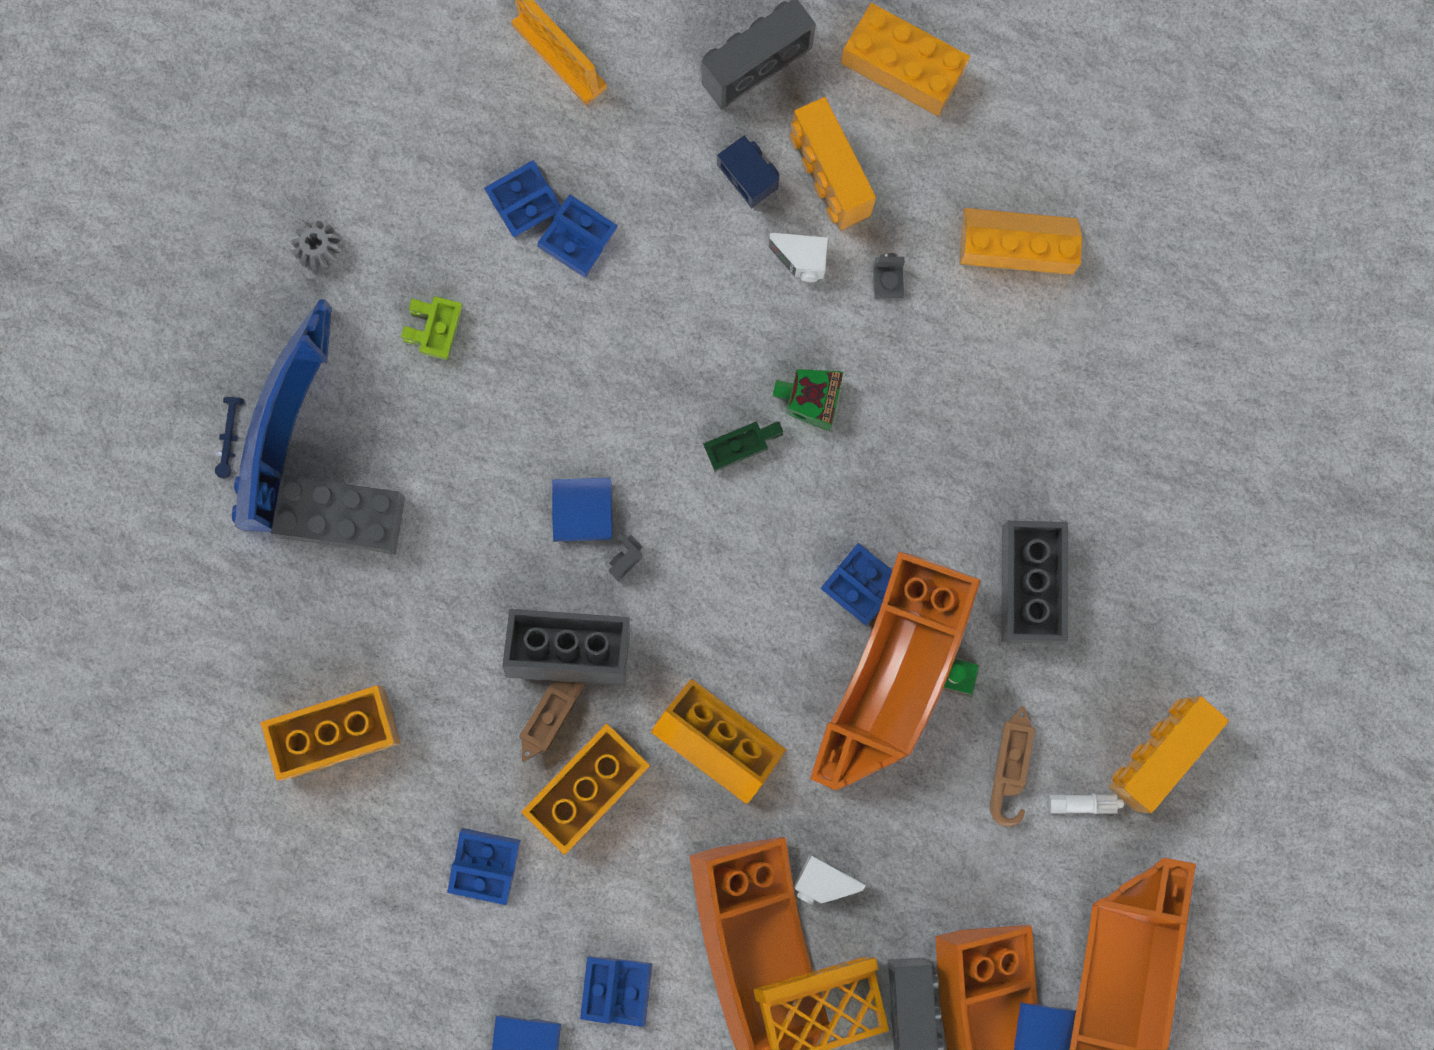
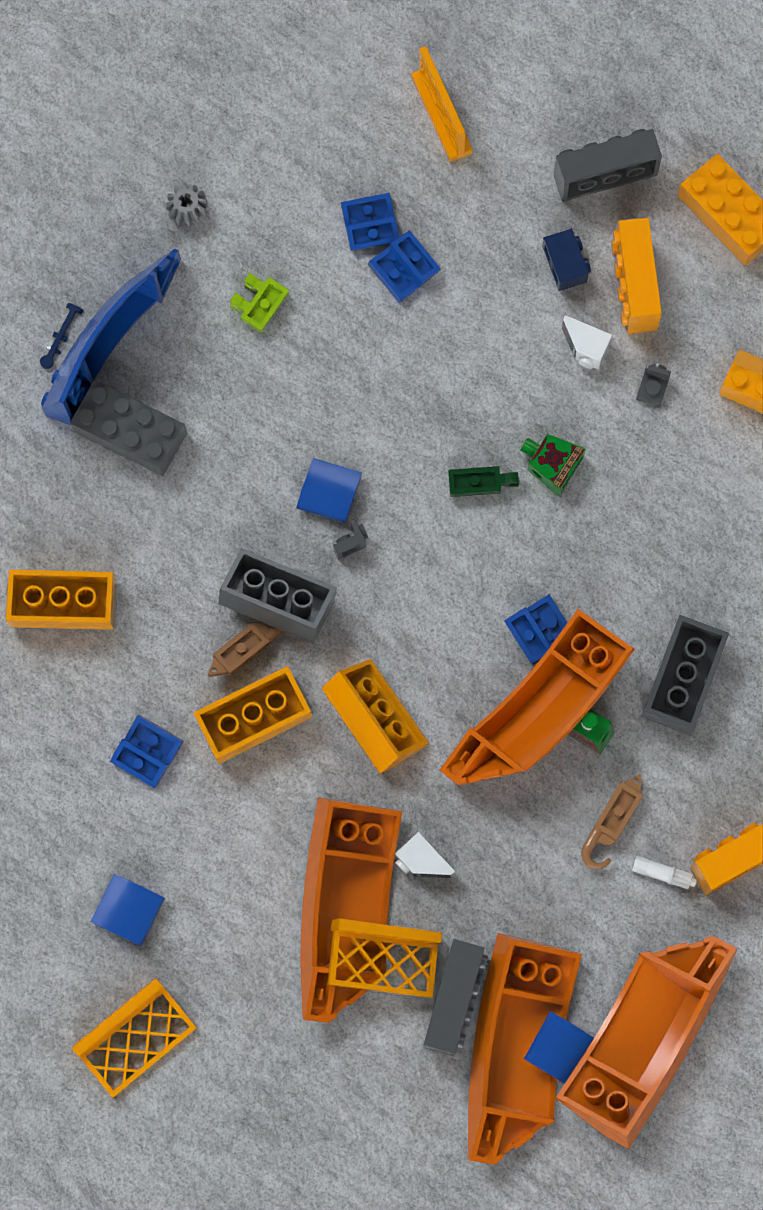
camera: 25 degrees right, 5 degrees down
(616, 991) = (219, 888): blue slope -> none

